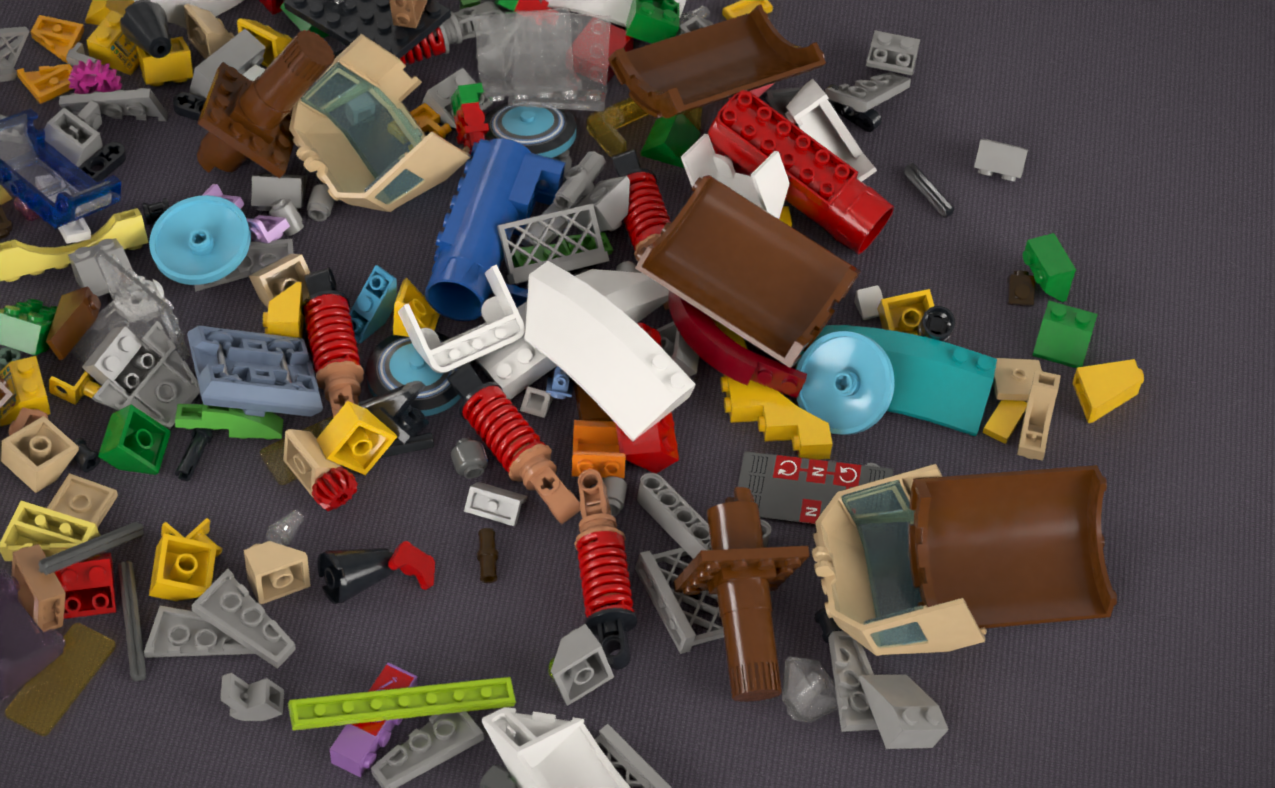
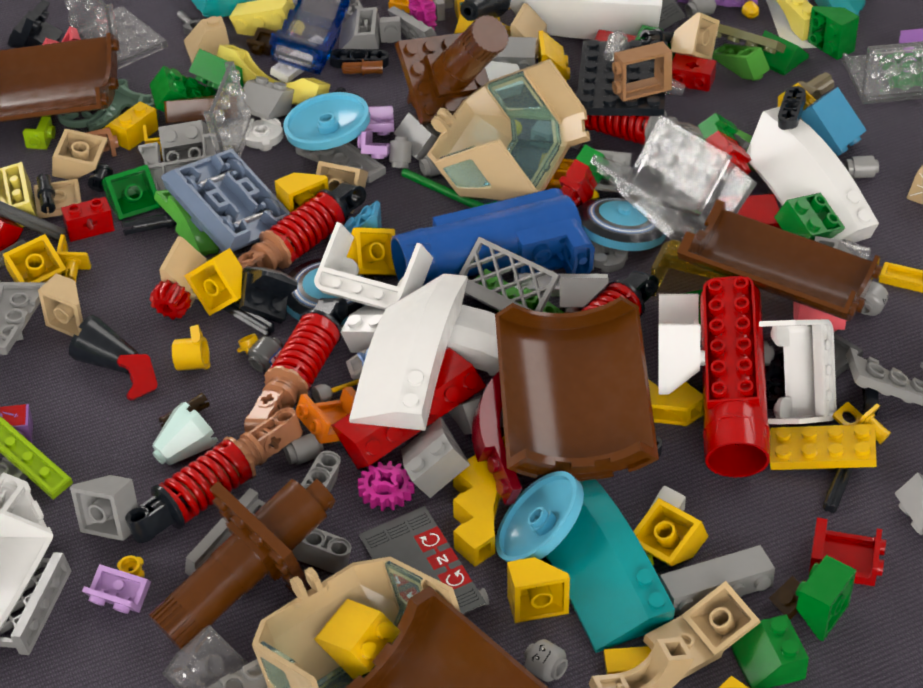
camera: 60 degrees right, 10 degrees down
(30, 278) = (210, 69): none -> green slope
(79, 507) = (46, 193): none -> black pin
(122, 167) = (363, 67): none -> dark orange axle
(144, 494) = (87, 219): none -> red brick
(285, 528) = (117, 298): clear cone -> none
(417, 206) = (450, 193): none -> green bar
(421, 507) = (191, 352): none -> yellow piece
(441, 463) = (246, 342): none -> yellow plate
(494, 503) = (238, 389): panel -> none
(528, 568) = (182, 436): none -> light aqua cone
(552, 441) = (324, 393): none -> light grey hinge
(579, 181) = (592, 266): light grey piece -> none
(650, 681) = (131, 562): none -> yellow plate
(671, 707) = (117, 588): none -> lavender bracket
(703, 463) = (385, 486): none -> dark pink gear
(711, 413) = (433, 458): none -> light grey slope
(877, 566) = (356, 637): none -> yellow slope
(886, 134) = (868, 418): none -> yellow bracket
(901, 167) = (823, 447): none -> yellow plate
(903, 431) = (536, 590): none -> yellow slope
(937, 323) = (662, 545): black wheel -> none
(971, 463) = (545, 660): none -> light grey head
(975, 313) = (743, 570): none -> light grey brick
(1003, 232) = (853, 550): none -> red panel
(1020, 339) = (721, 618): none -> tan slope

